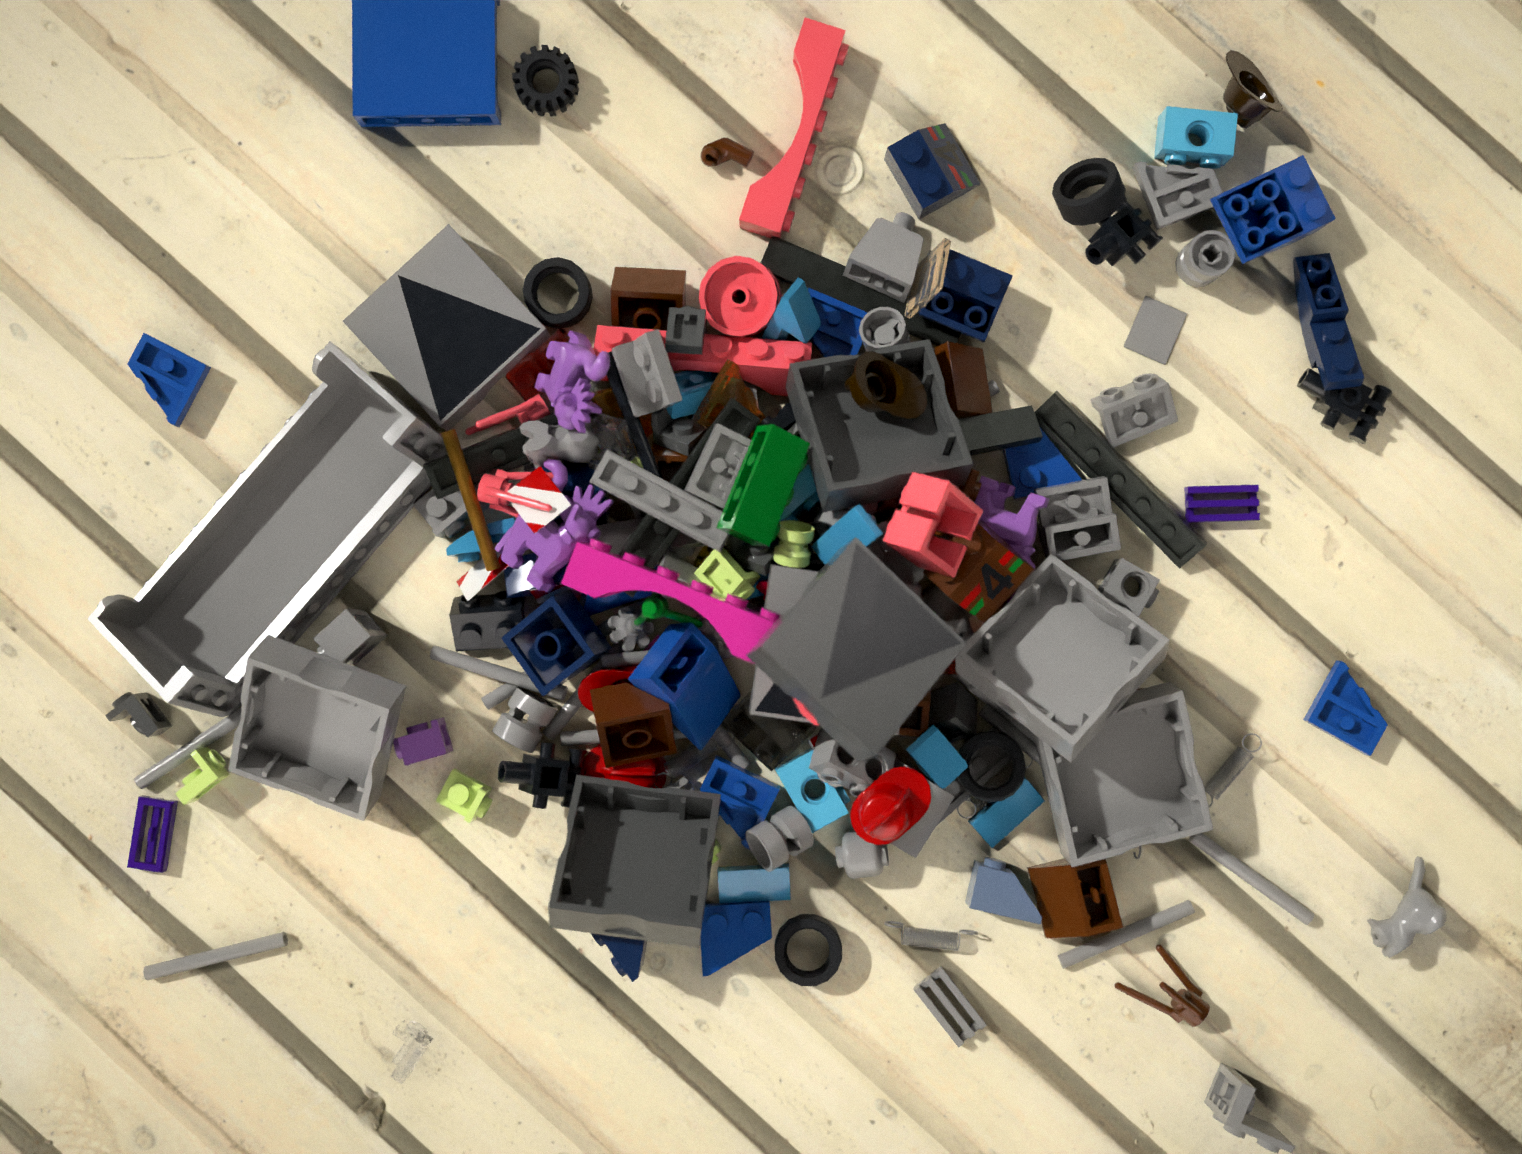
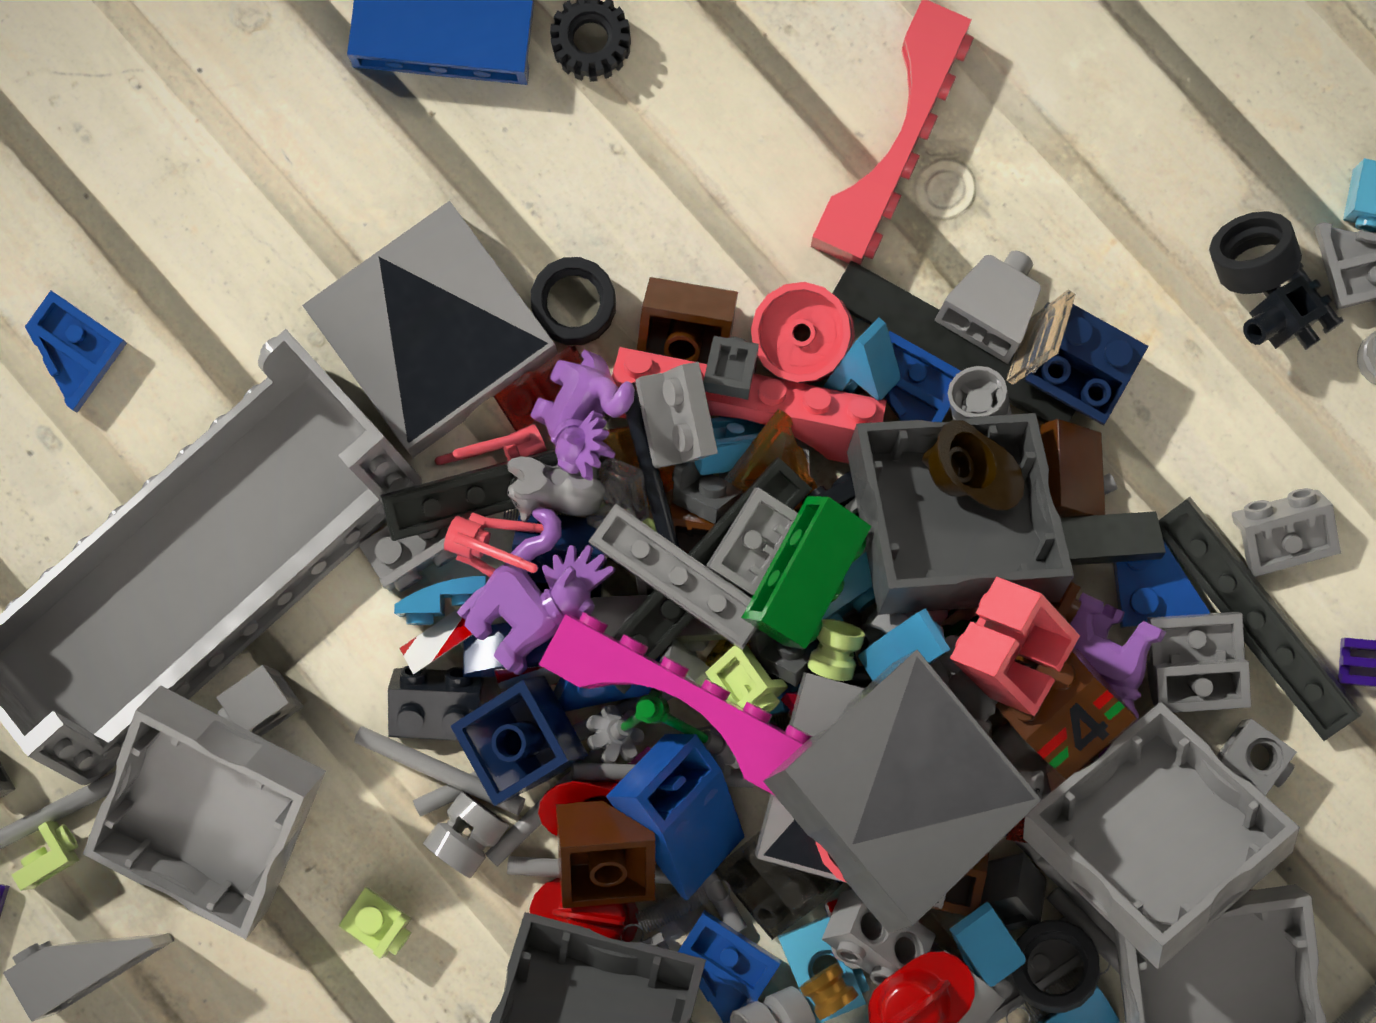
camera: 10 degrees right, 5 degrees down
(220, 867) = (59, 975): none -> light grey slope
(423, 742) = (333, 848): medium lavender brick -> none
(470, 499) = (434, 547): pearl gold bar -> none
(540, 488) = (525, 542): white sticker -> none
(544, 774) = (483, 908): black piece -> none
(725, 150) = (804, 148): reddish brown arm -> none
(818, 807) = (828, 991): none -> pearl gold wheel
(930, 169) = (1059, 201): dark blue slope -> none
(1155, 330) = (1323, 435): light grey sticker -> none

